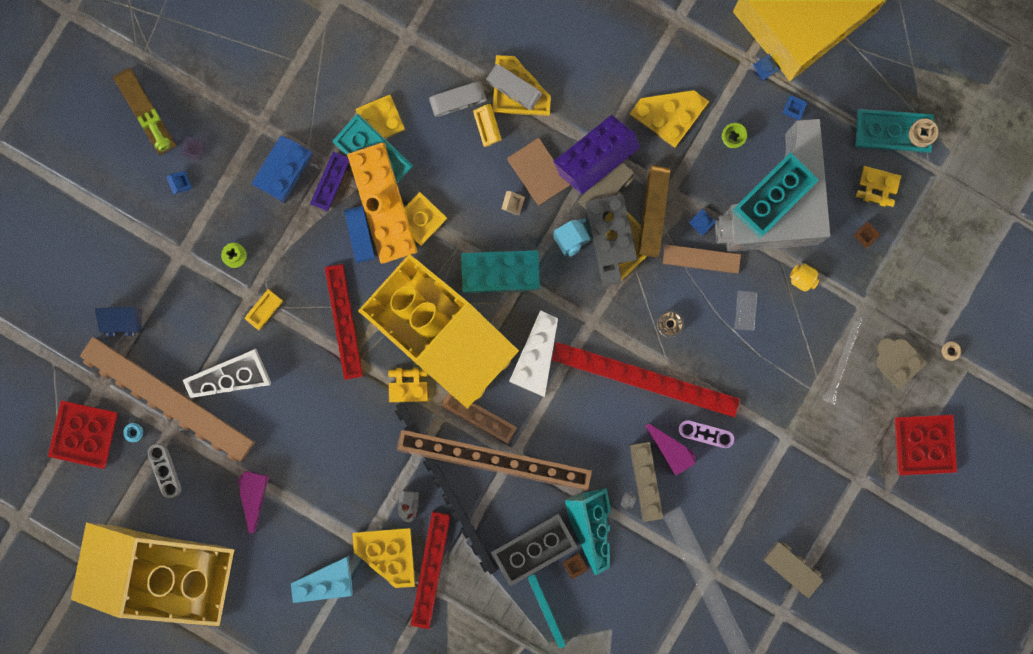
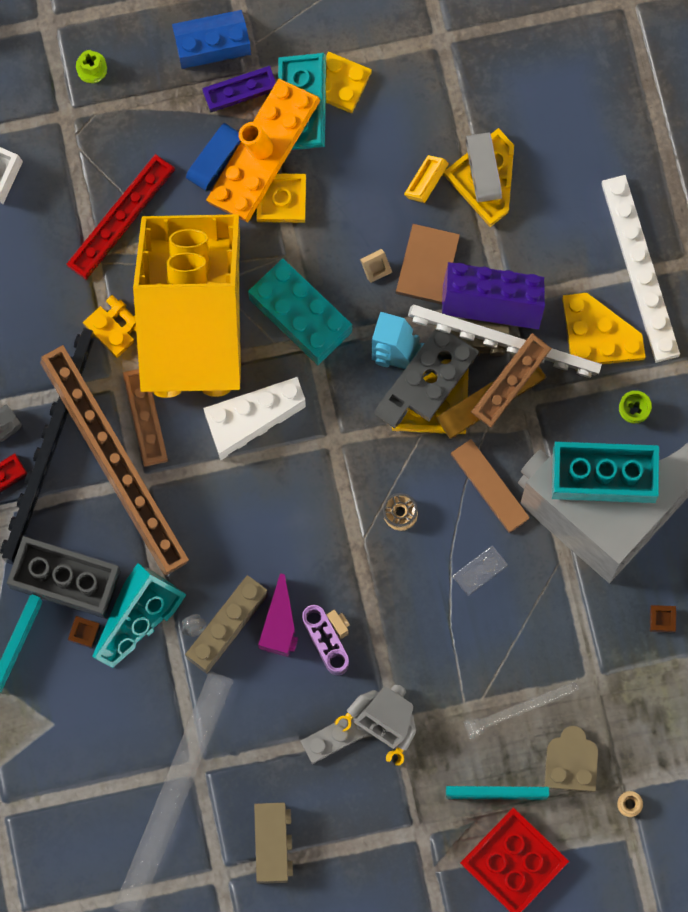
camera: 45 degrees right, 10 degrees down
(263, 309) = (65, 137): yellow tile -> none
(457, 99) = (425, 131): light grey beam -> none
(624, 178) = (494, 338): none -> white plate
(645, 379) = (326, 539): red plate -> none
(653, 53) = (640, 269): none -> white plate
(658, 192) = (511, 380): none -> medium nougat tile
(702, 222) = (523, 452): blue plate -> none
(703, 418) = (338, 623): none -> tan plate
(765, 475) = (331, 740): none -> light grey plate
(780, 442) = (385, 717): none -> light grey torso
(804, 277) = (564, 595): yellow head -> none
(879, 418) = (497, 792): none -> teal tile

